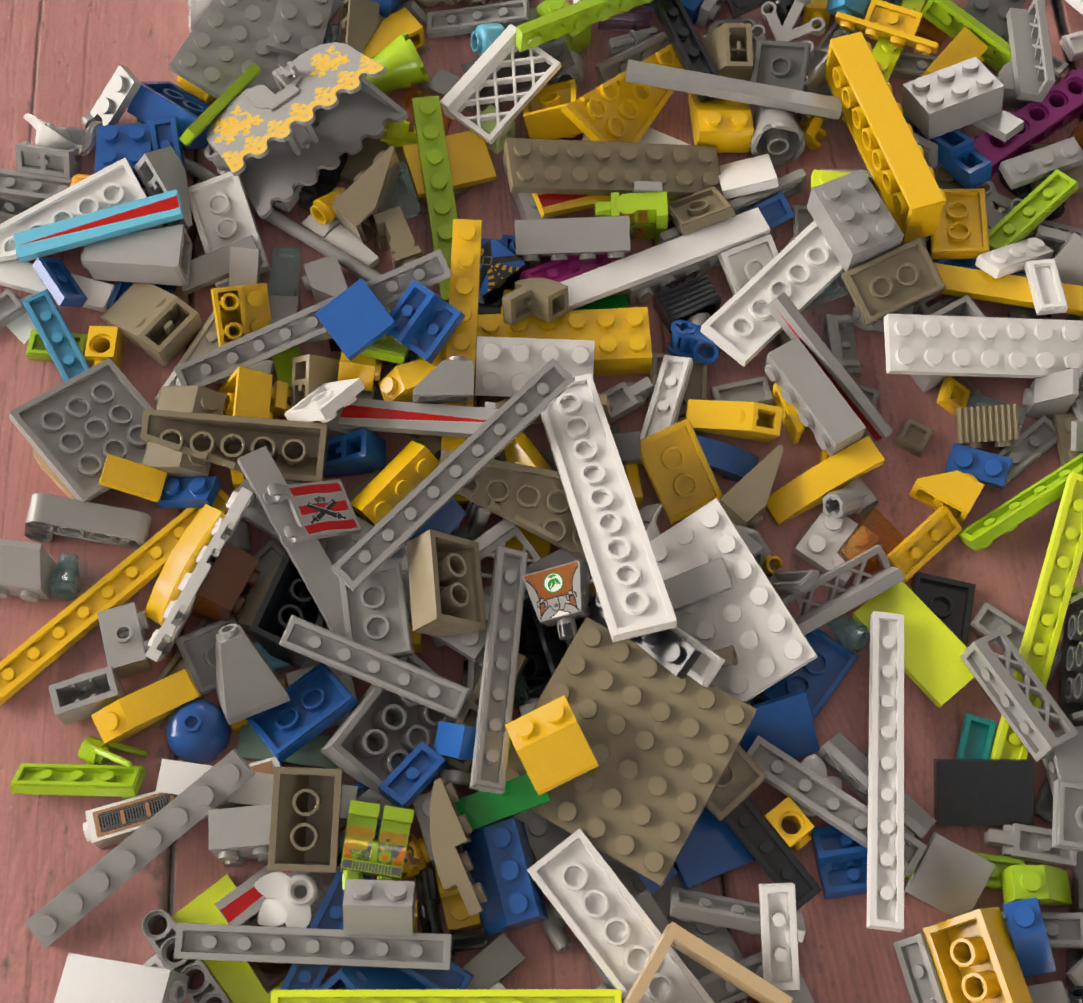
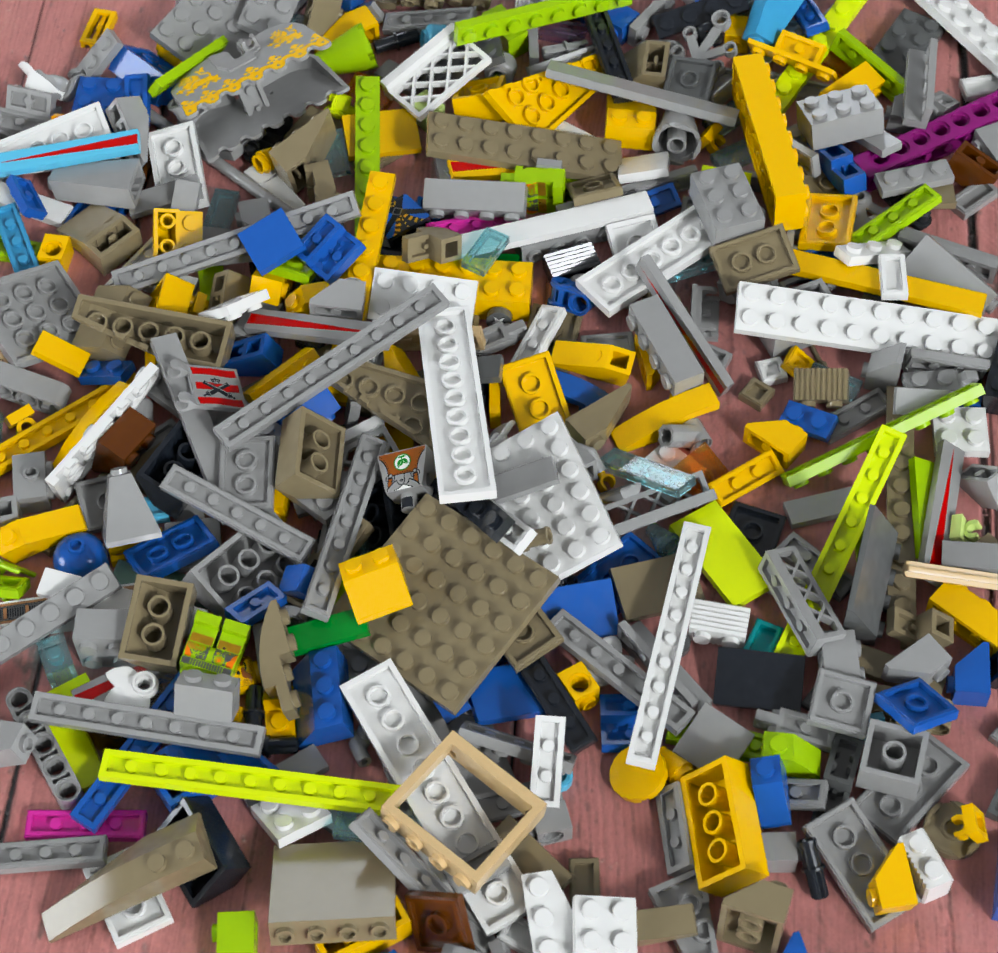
camera: 10 degrees right, 10 degrees down
(97, 559) = (20, 417): none -> yellow tile
(104, 78) = (108, 21): none -> yellow tile
(192, 863) = (57, 660): none -> clear light blue slope
(444, 46) = (396, 41): none -> black axle
(594, 301) = (485, 251): none -> clear light blue tile
(598, 43) = (533, 46): none -> light grey tile
(618, 373) = (497, 315): none -> dark grey tile
(821, 554) = (648, 472): none -> clear light blue tile
(836, 151) = (732, 154): none -> clear light blue tile
(839, 692) = (643, 587): none -> dark tan tile
(866, 941) = (637, 783): none -> yellow tile
(916, 914) = (675, 764): none -> yellow cone
(924, 407) = (770, 371): none -> white tile
(932, 727) = (719, 623): none -> white brick
(1009, 567) = (815, 508): none -> light grey tile

